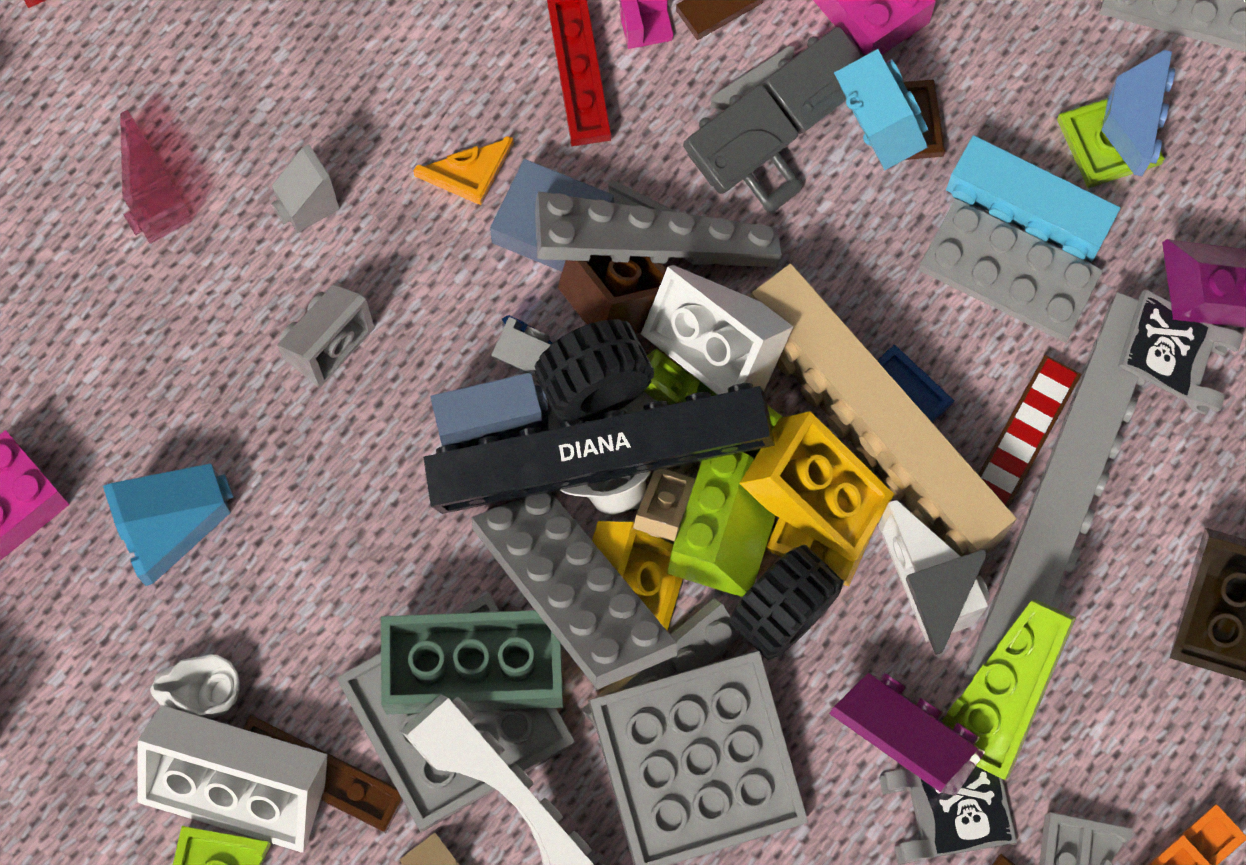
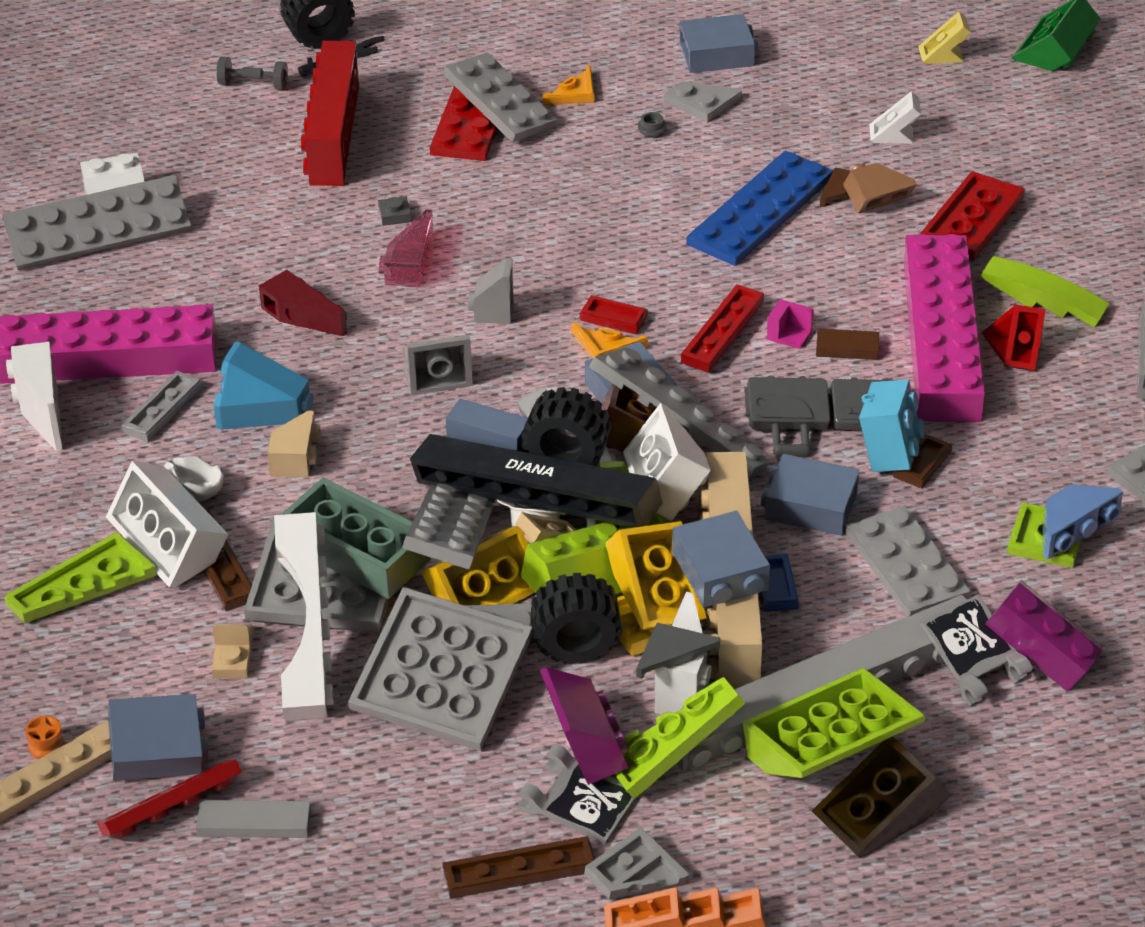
camera: 40 degrees right, 30 degrees down
(58, 601) = (162, 406): none -> light grey tile
(66, 125) = (394, 210): none -> dark grey plate
(84, 348) = (298, 304): none -> dark red slope
(267, 563) = (293, 448): none -> tan slope
(443, 123) = (613, 314): none -> red tile
(857, 248) = (810, 494): none -> sand blue brick
(903, 444) = (720, 558): none -> sand blue brick
(1028, 428) = (803, 647): tile -> none
(1032, 199) = (956, 530): medium azure brick -> none
(1148, 564) = (827, 725): none -> lime slope

